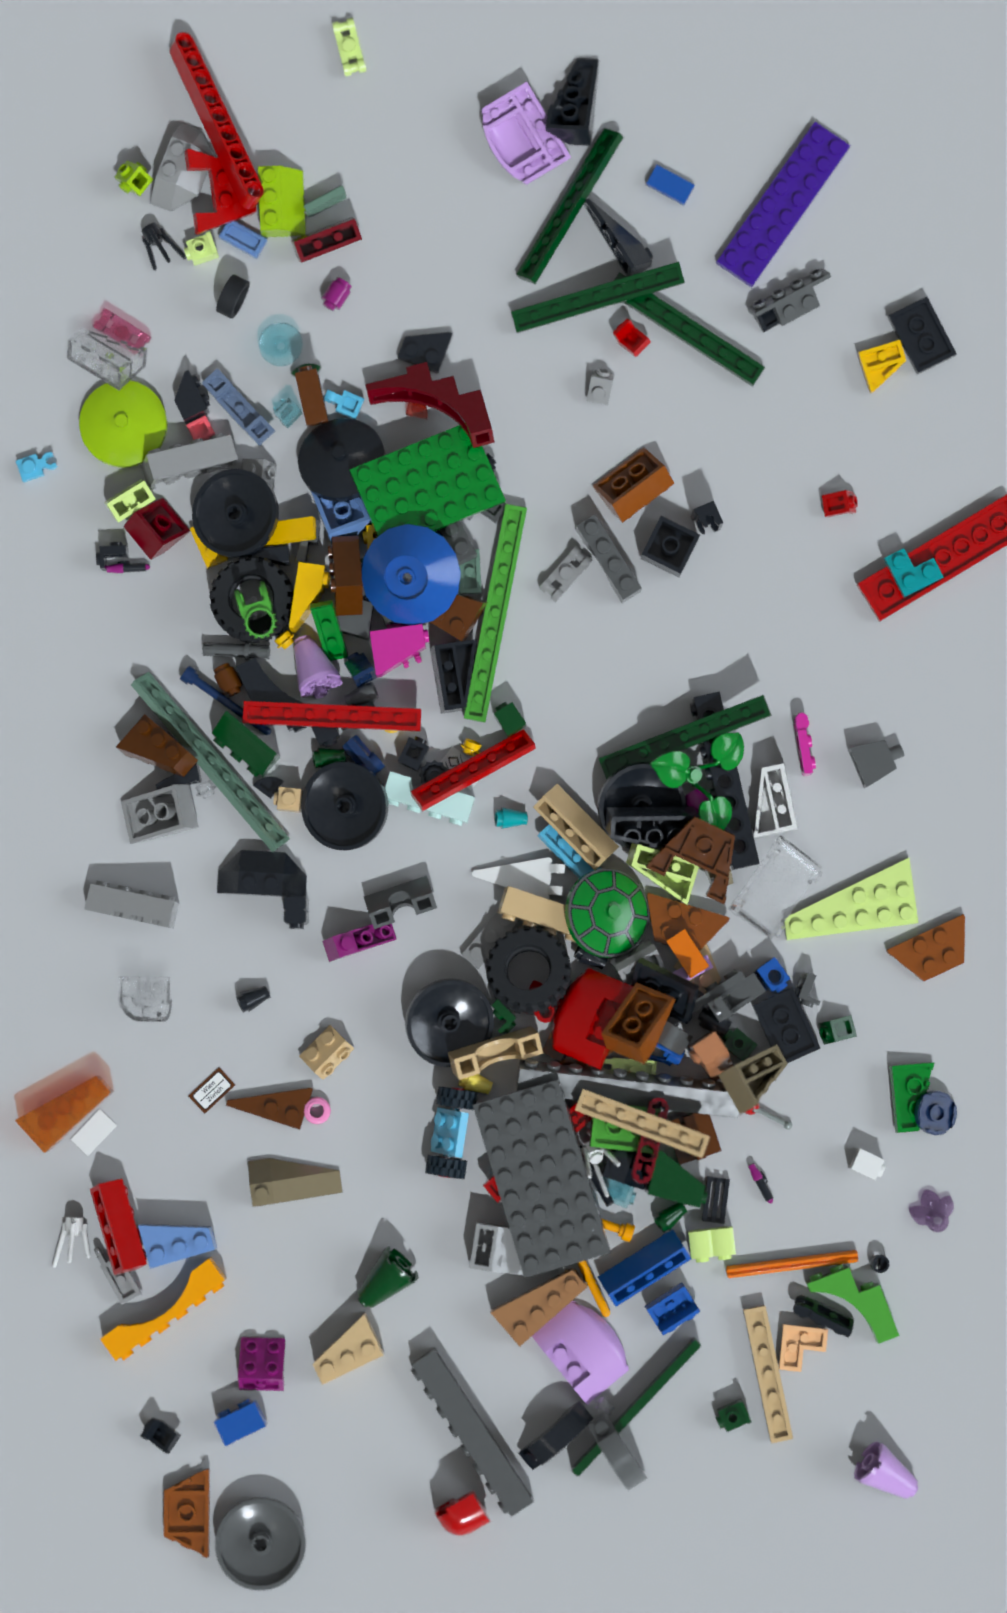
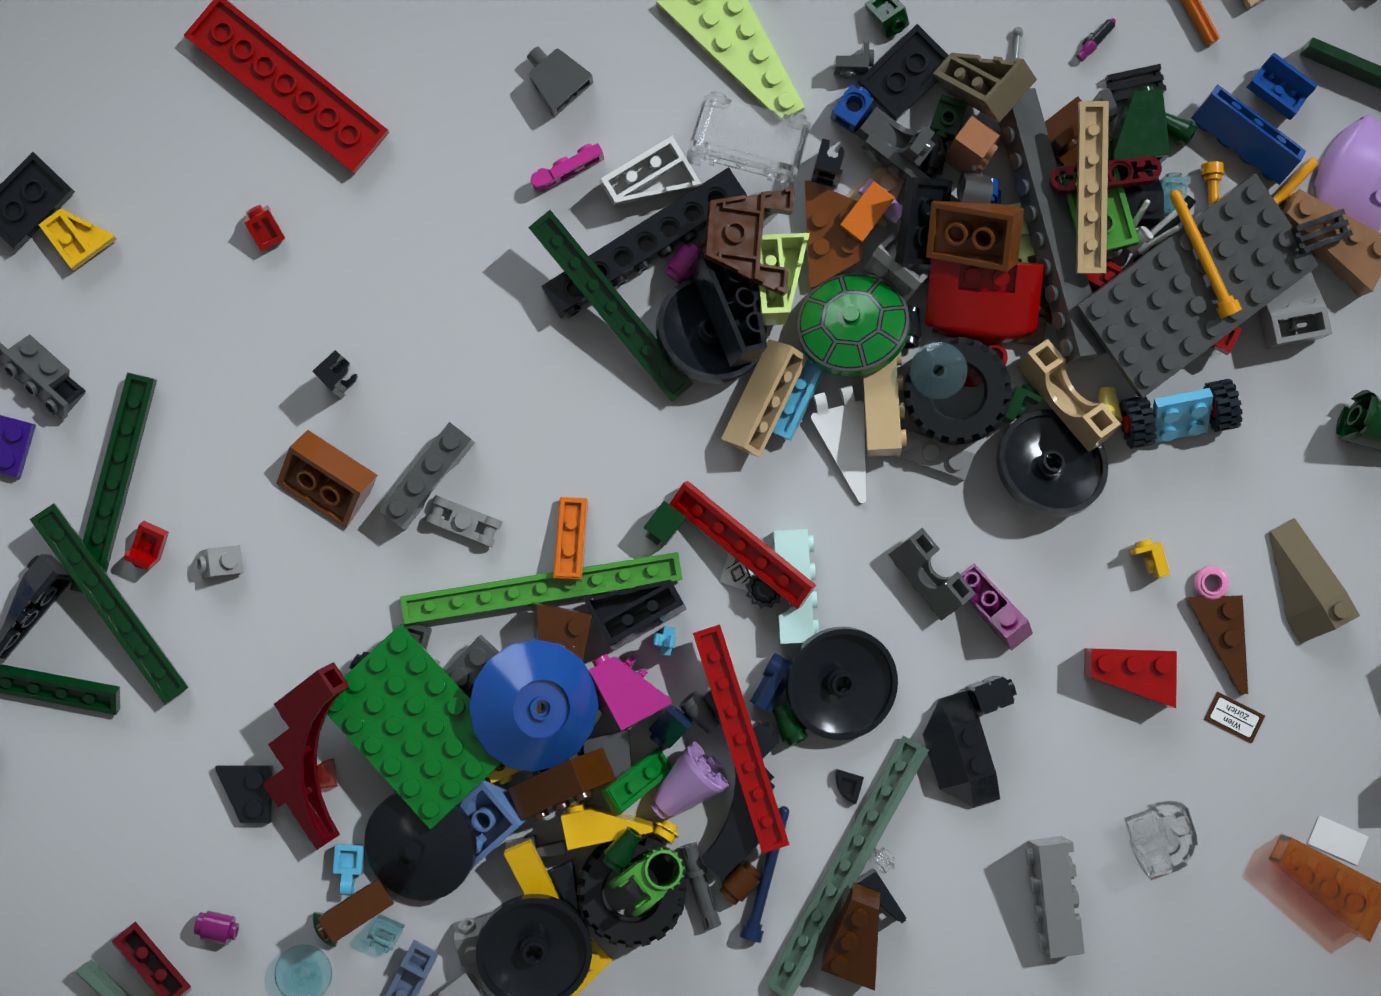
camera: 110 degrees left, 0 degrees up
(159, 813) = (932, 904): light grey slope -> none
(244, 745) = (812, 832): dark green slope -> none
(252, 998) = (1110, 709): black cone -> none
(273, 1026) = (1139, 672): none -> red wedge
(284, 600) = (620, 852): none -> dark green cone
(288, 799) = (858, 754): tan brick -> none
(326, 1052) = (1140, 597): tan bracket -> none
(348, 1072) = (1155, 560): none -> yellow bracket
(414, 762) = (757, 620): black brick -> none
(423, 688) = (665, 640): none -> medium azure plate
(471, 576) = (507, 633): sand green plate -> none
(471, 747) = (713, 558): yellow plate -> none
(509, 818) = (781, 481): teal cone -> none
(519, 1191) = (1226, 303): none -> light orange piece
(523, 647) = (570, 539): none -> orange tile
(548, 1305) = (1340, 223): none -> black tile
(552, 968) = (954, 370): none -> clear light blue dish
(670, 546) = (386, 407): black brick -> none
(675, 769) = (653, 299): green plant -> none
(705, 1169) = (1106, 95): none -> dark grey tile
(711, 1243) = (1187, 69): yellowish green brick -> none
(731, 937) = (827, 168): none -> black hinge
(911, 578) = (324, 112): teal plate -> none

